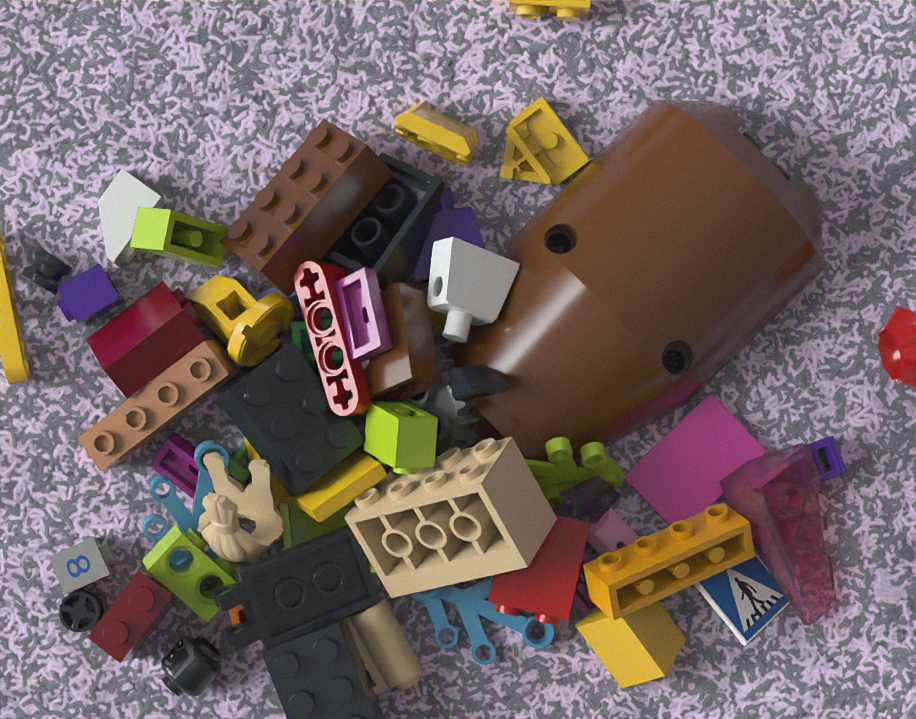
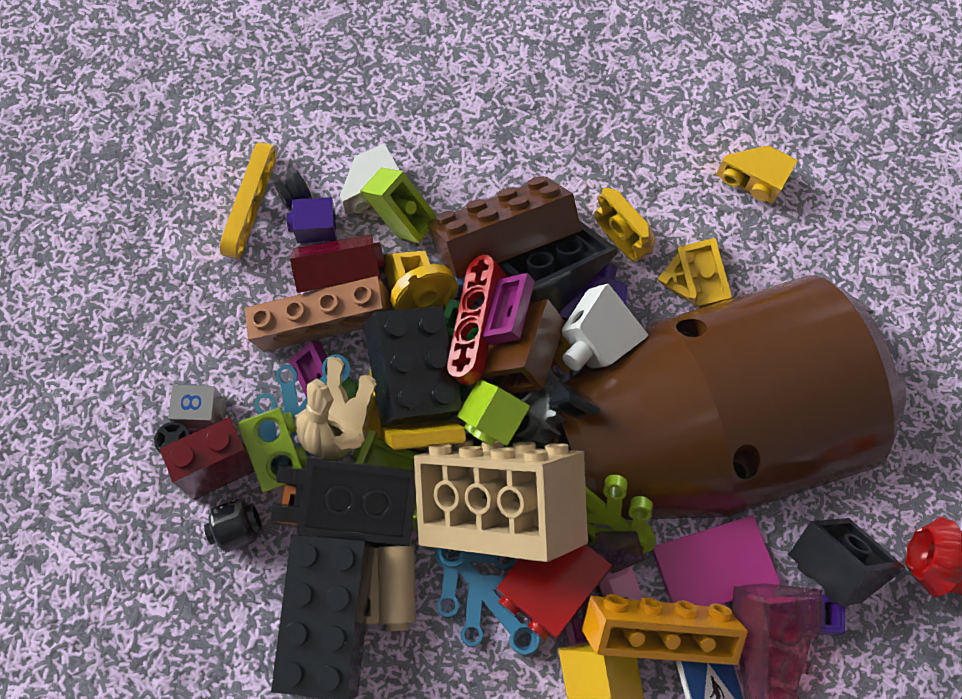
camera: 25 degrees right, 15 degrees down
(818, 398) = (844, 560): none -> black slope

